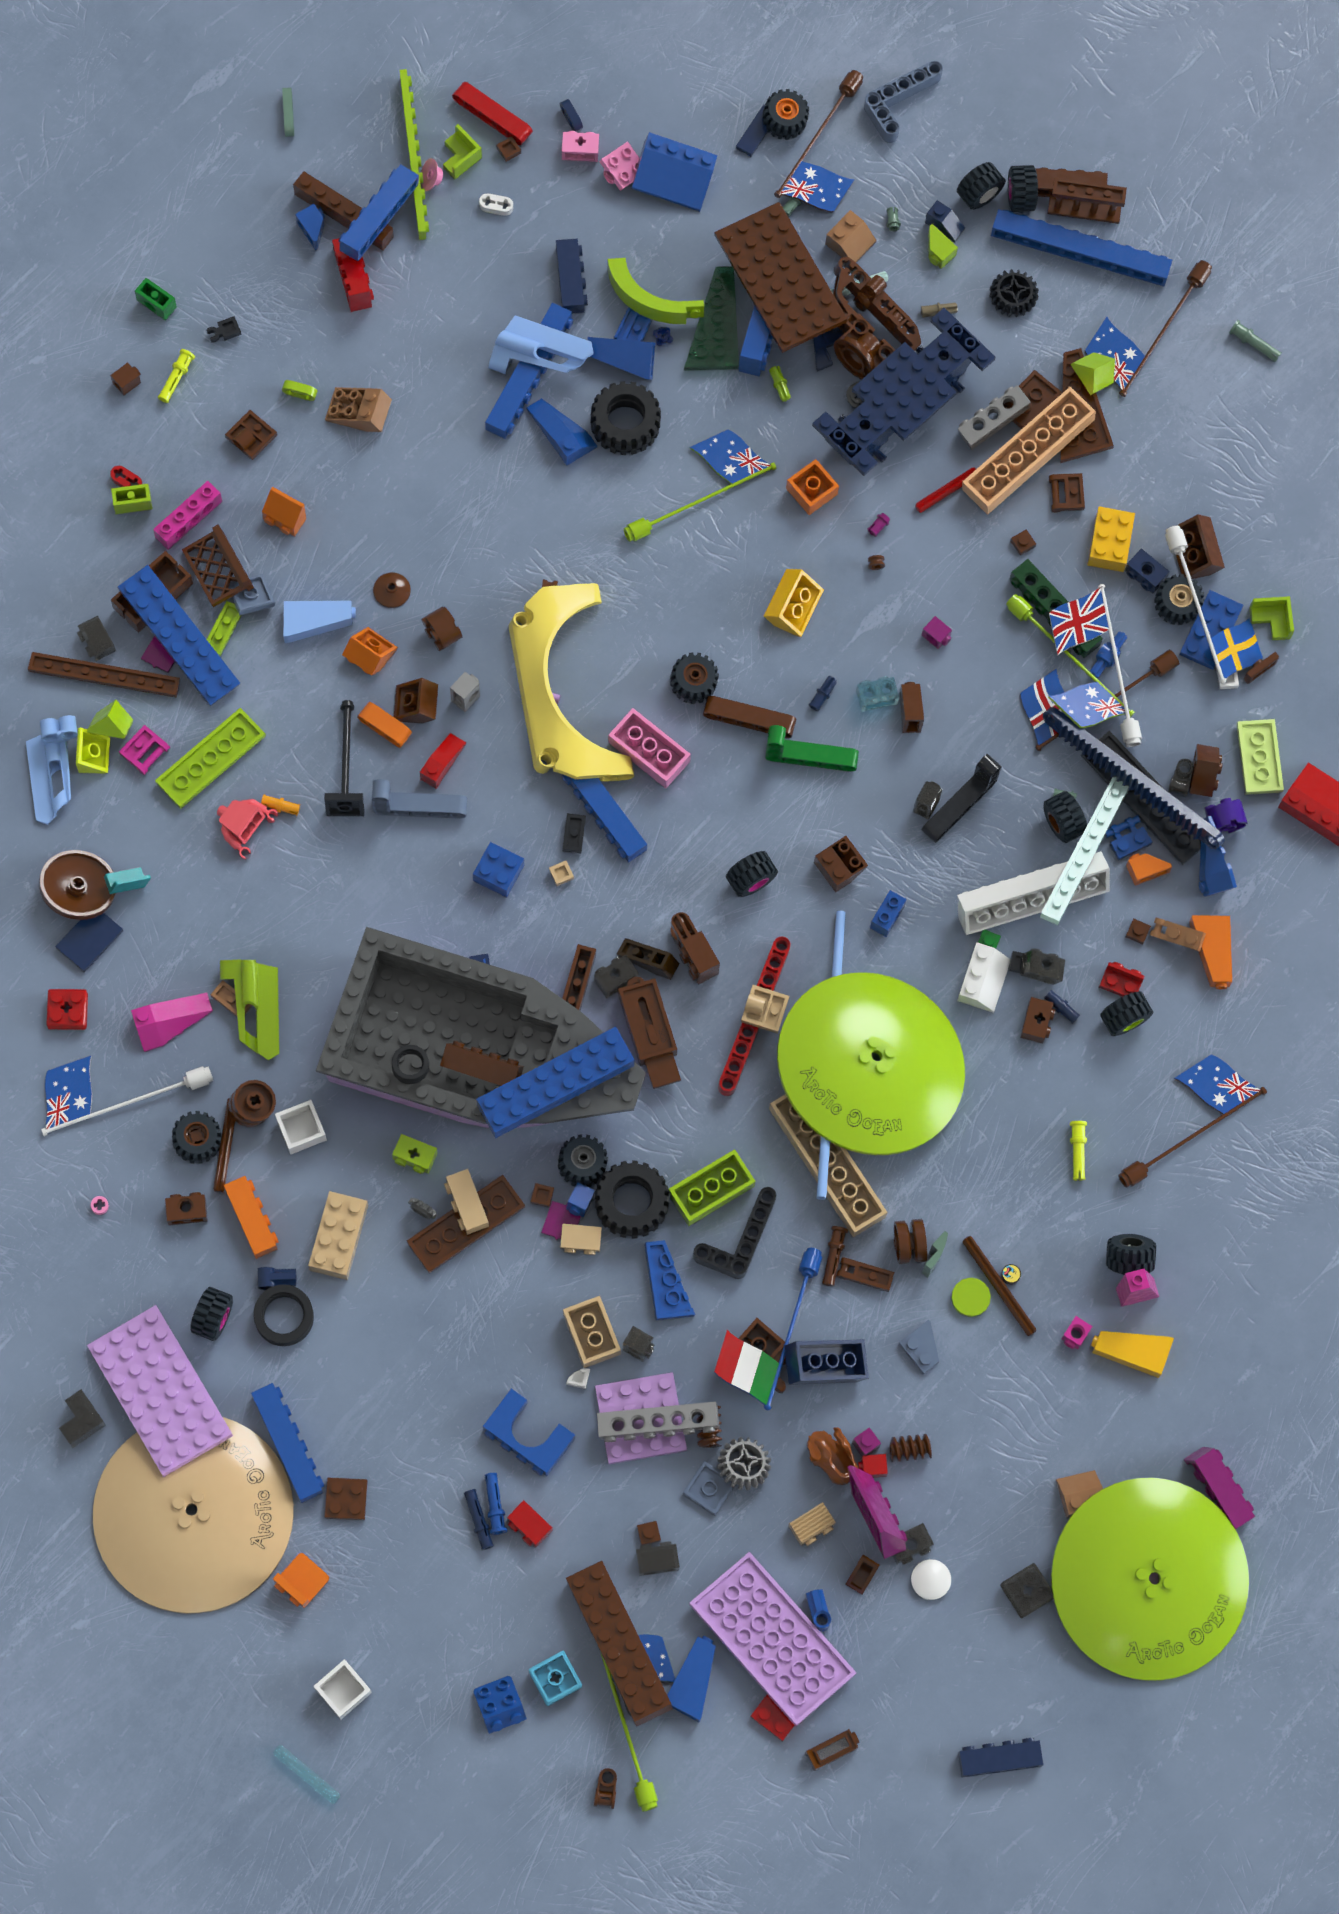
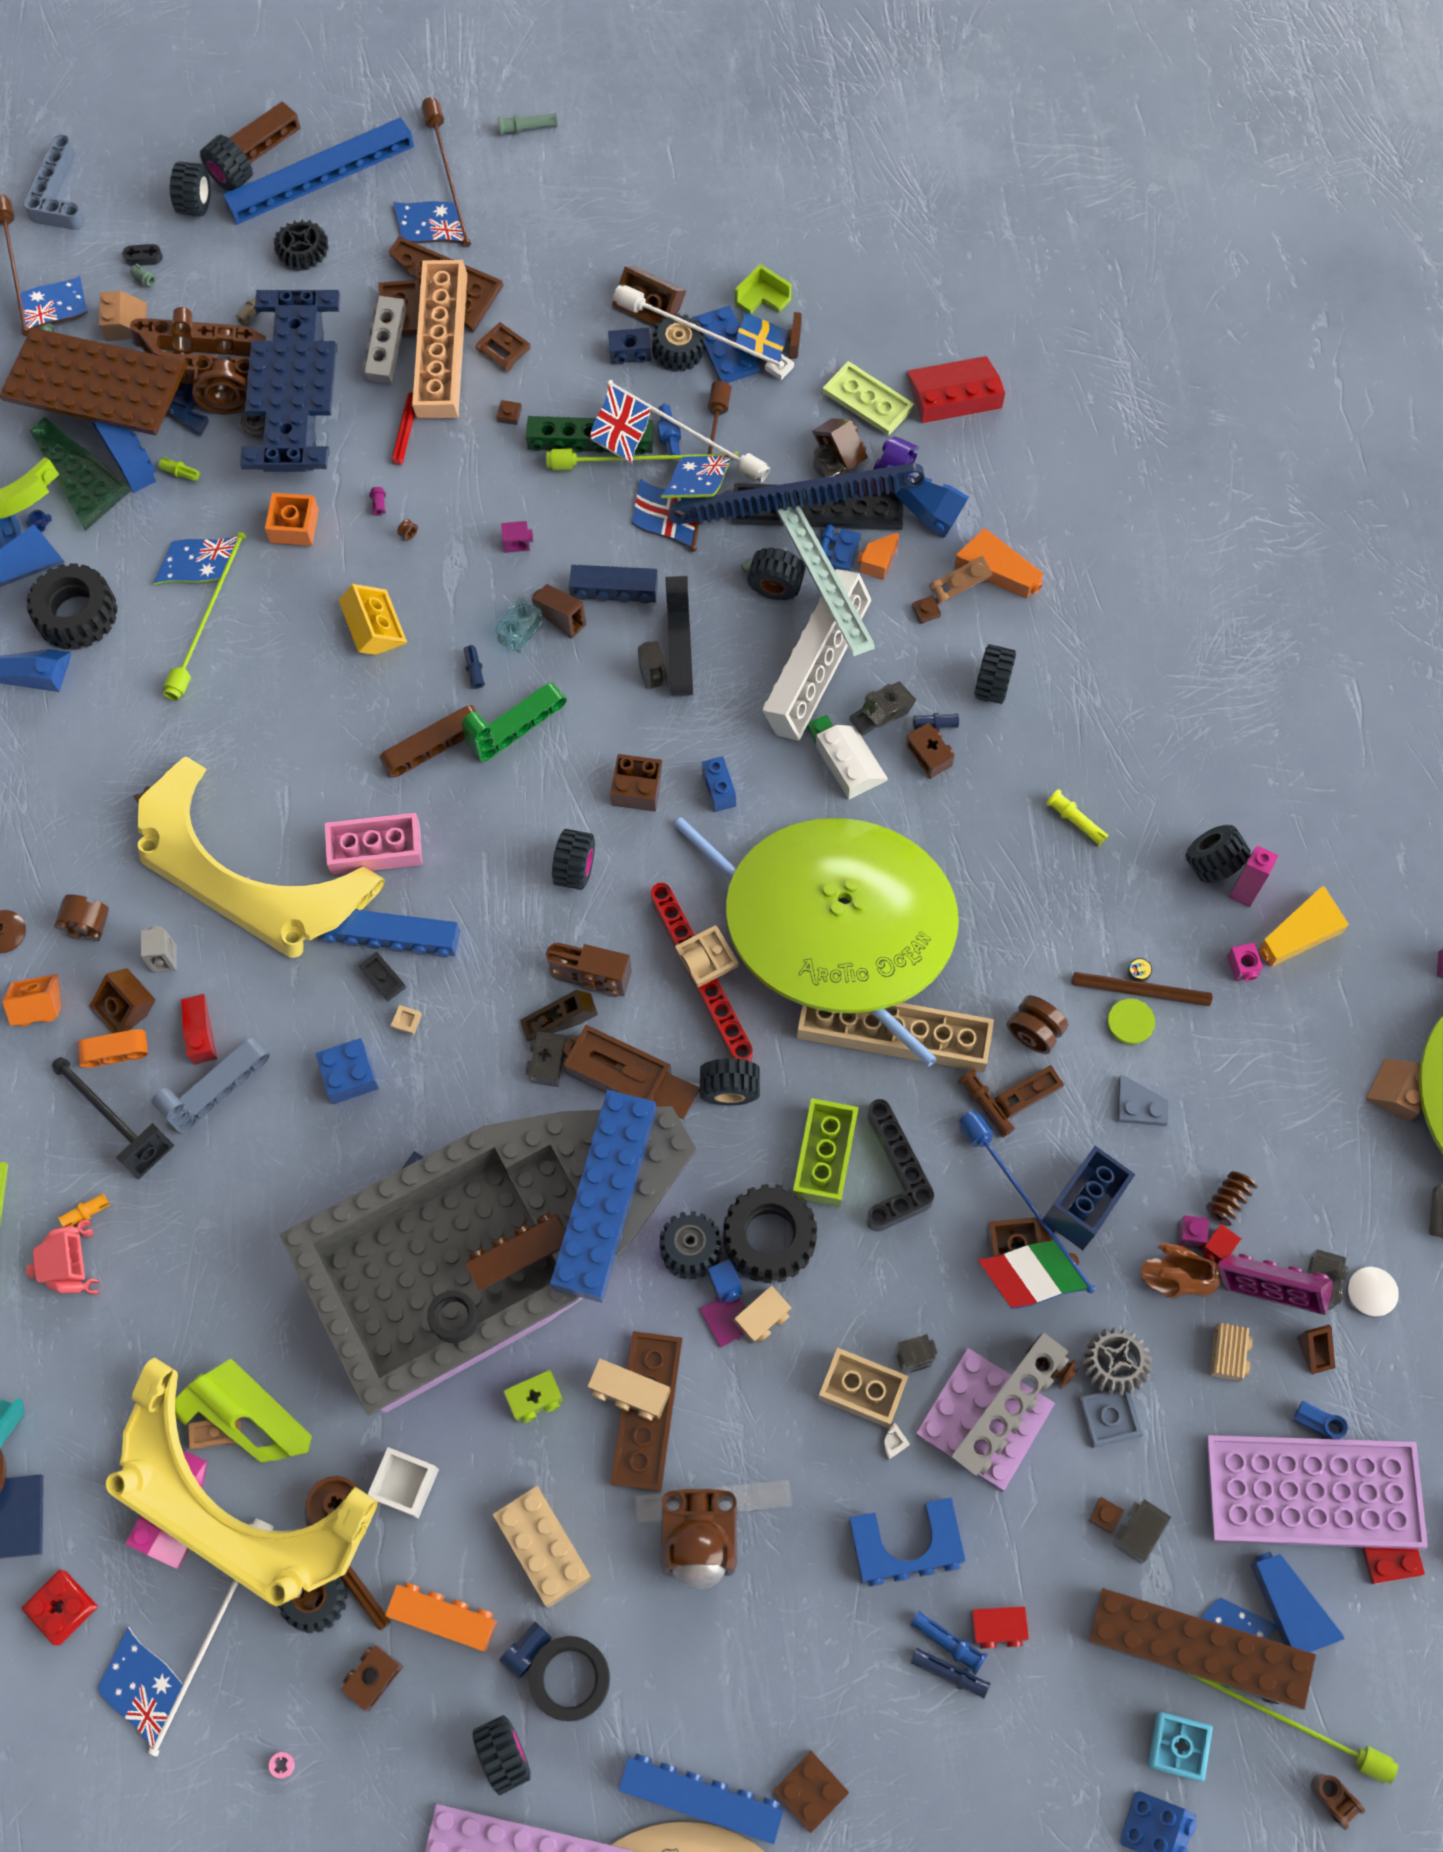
camera: 40 degrees left, 5 degrees down
(176, 1005) = (165, 1492): none -> light yellow panel
(422, 1208) = (594, 1439): dark grey gear -> none
(422, 1313) = (699, 1537): none -> reddish brown piece
(450, 1307) = (748, 1496): none -> clear plate
(542, 1195) = (687, 1313): reddish brown plate -> none
(579, 976) = (515, 1086): reddish brown brick -> none
(666, 1287) = (884, 1281): blue wing -> none
(694, 677) = (351, 753): black wheel -> none
(700, 1093) = (729, 1081): none -> black wheel
(908, 202) = (142, 254): none -> black beam
(936, 1252) = (1068, 1006): sand green slope -> none
(940, 248) = (204, 262): lime slope -> none
(945, 220) = (187, 241): dark blue slope -> none
(963, 723) = (613, 583): none -> dark blue brick
(1087, 200) = (280, 117): reddish brown fence -> none
(1095, 371) = (429, 240): lime slope -> none
(1111, 539) = (576, 347): yellow brick -> none
(1121, 980) = (957, 657): red bracket -> none
(1217, 1087) = (1126, 665): flag -> none

